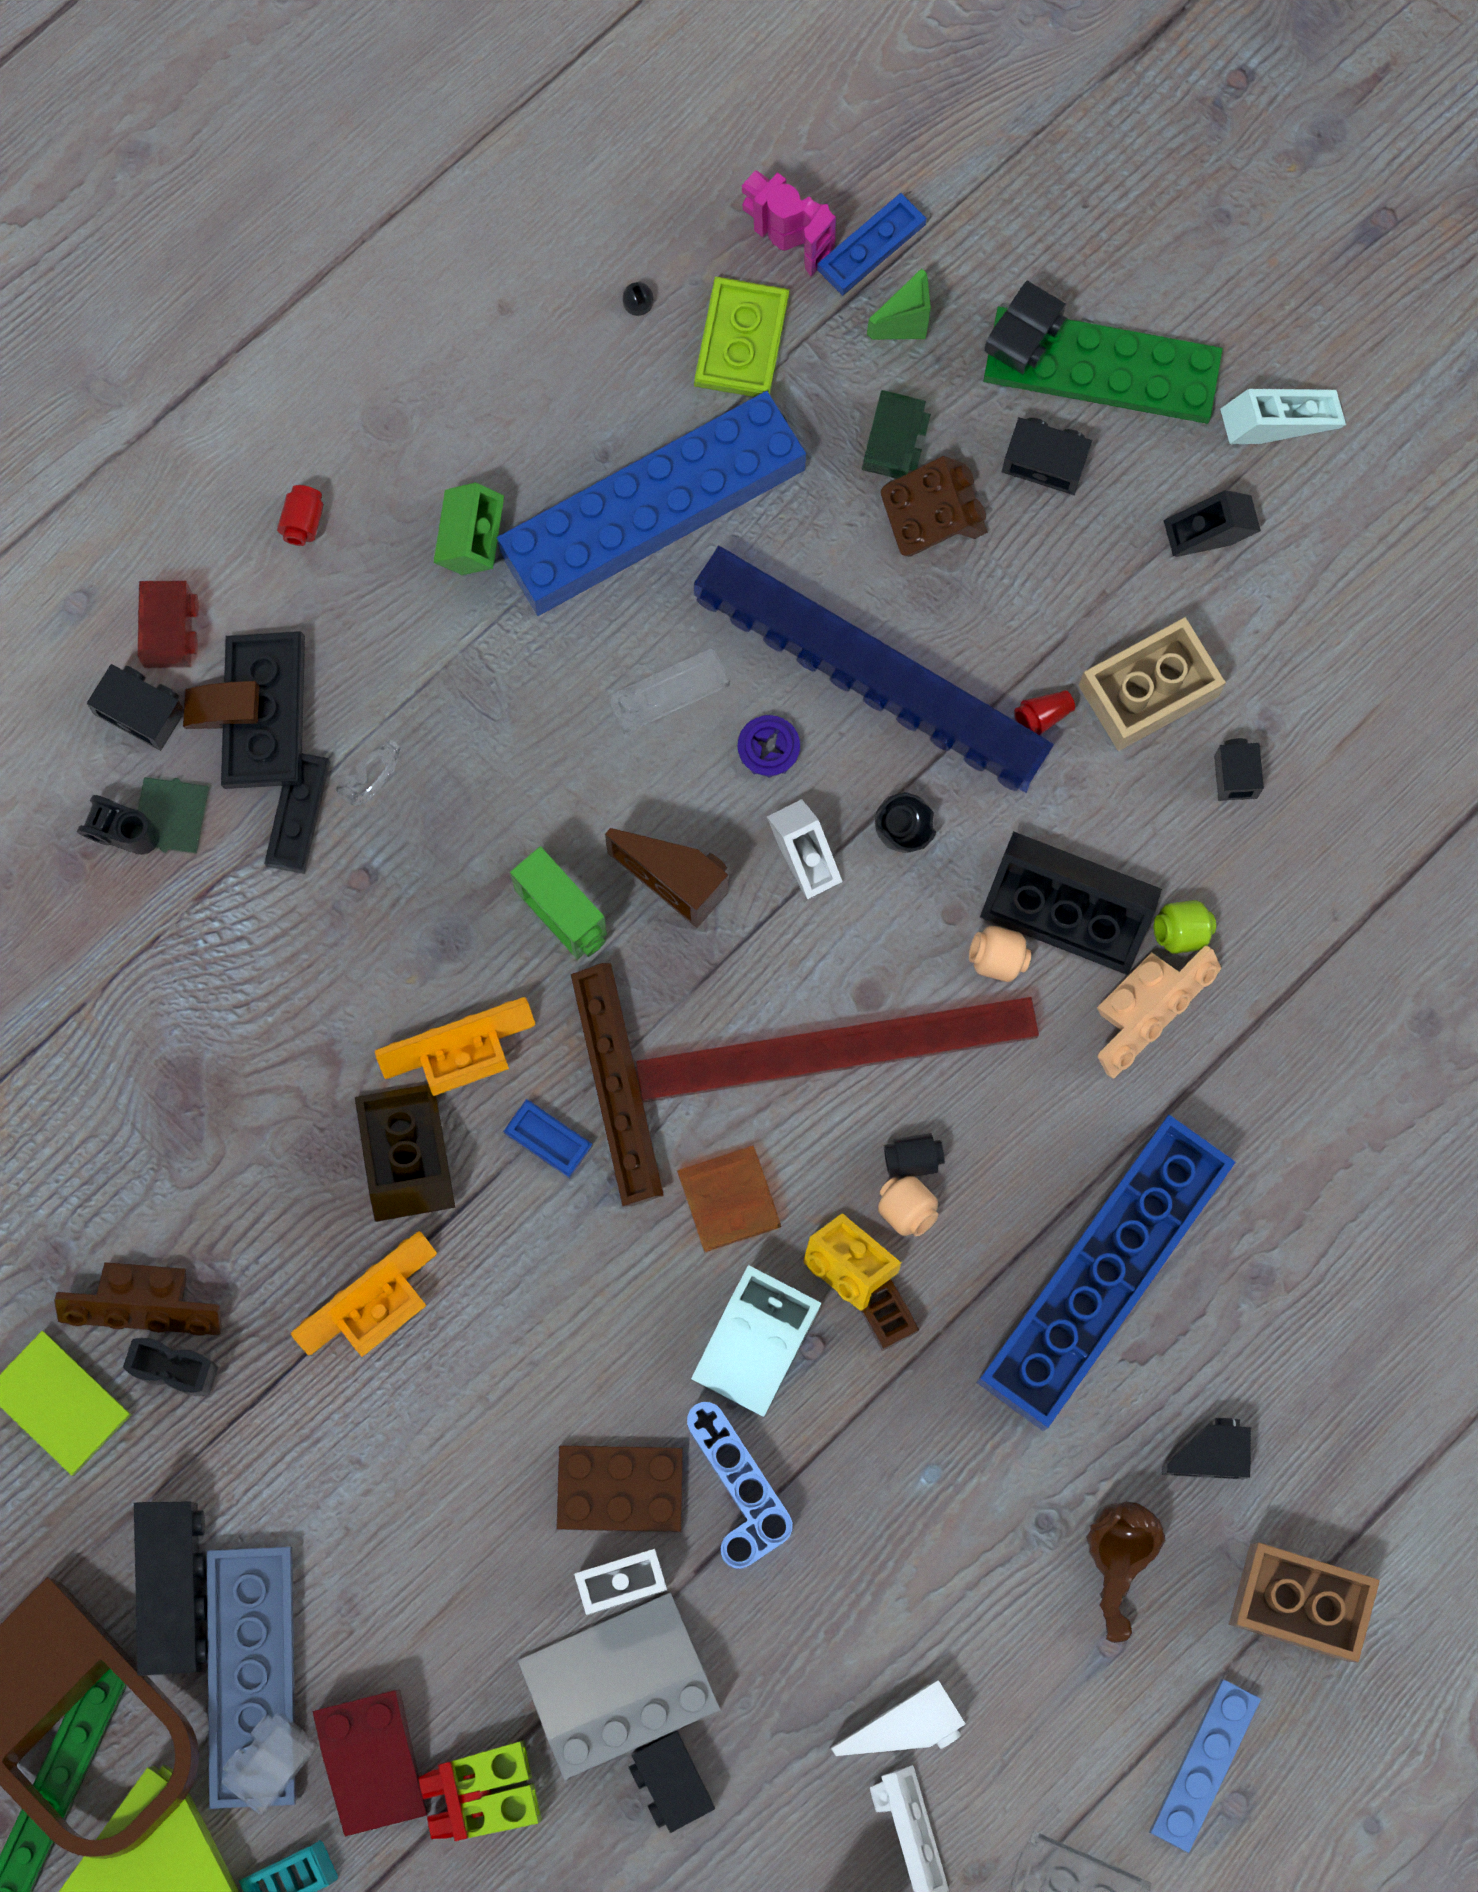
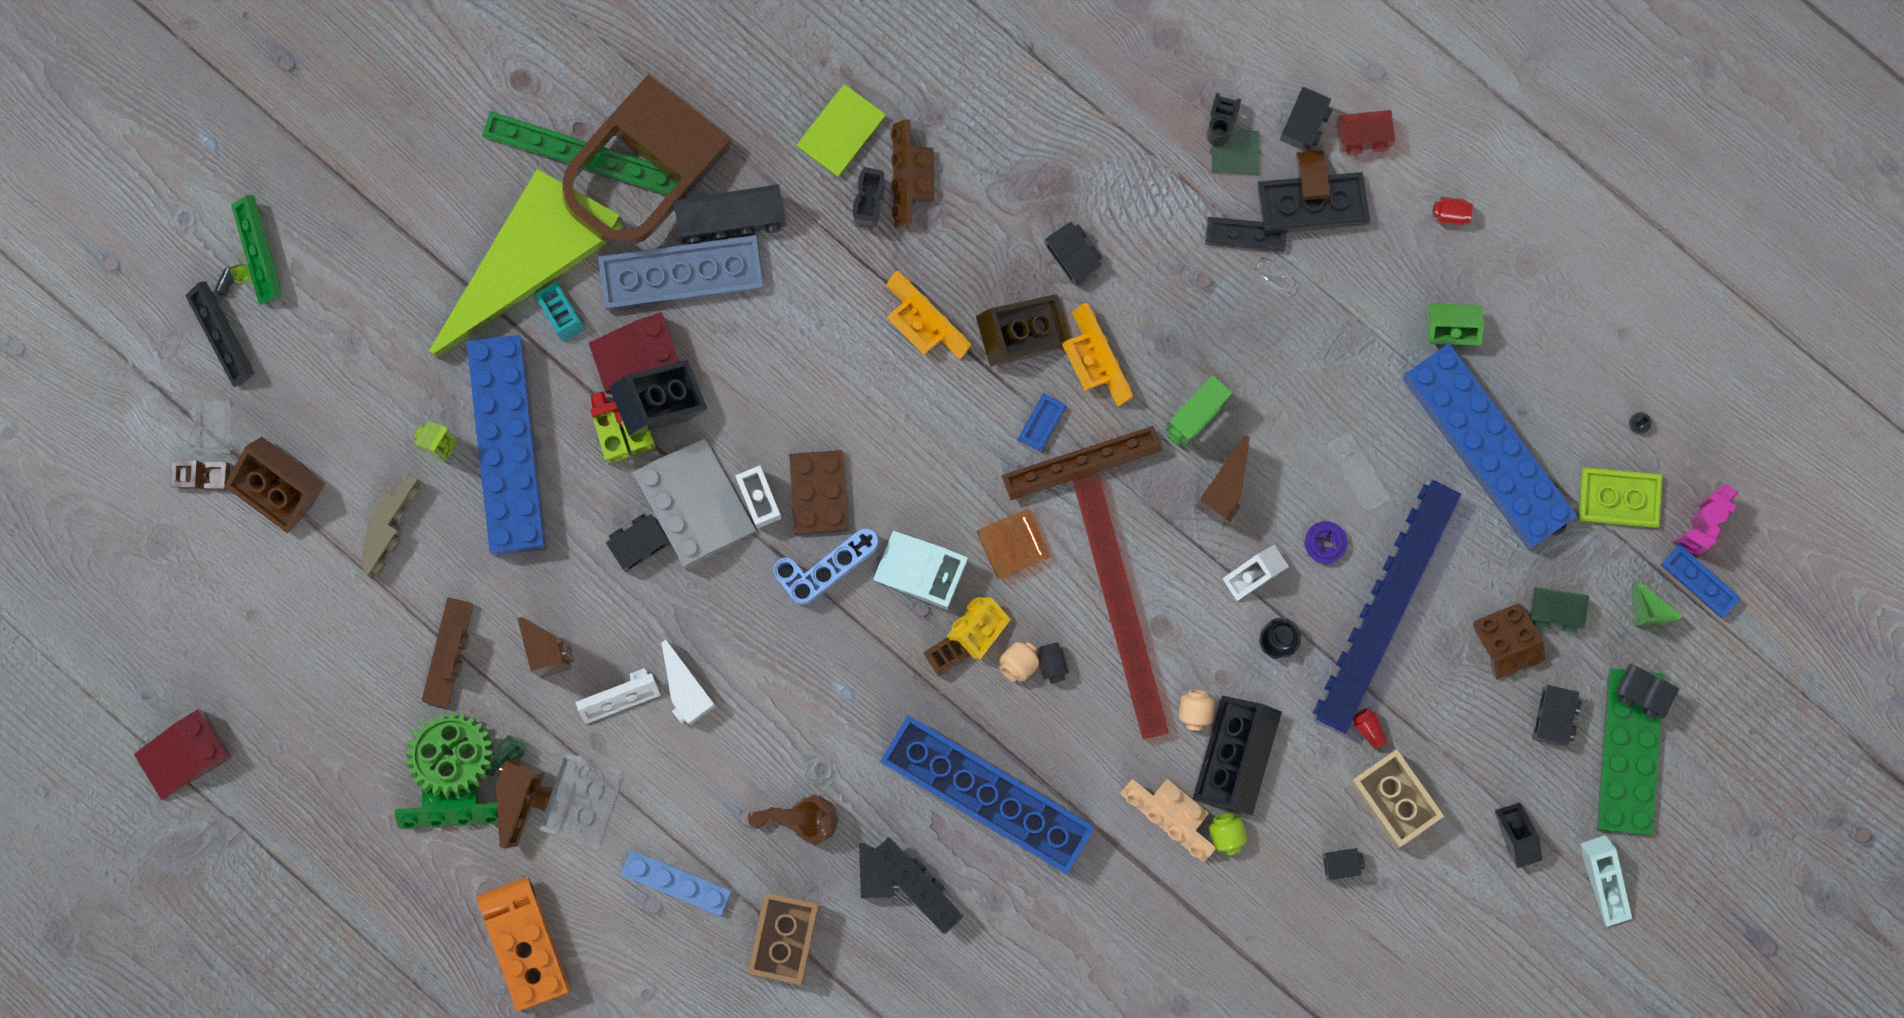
camera: 85 degrees right, 5 degrees up
(269, 1762) = (628, 289): clear brick -> none
(294, 1066) = (1073, 252): none -> black brick
(450, 1728) = (658, 397): none -> black brick
(1236, 1390) = (916, 885): none -> black bracket

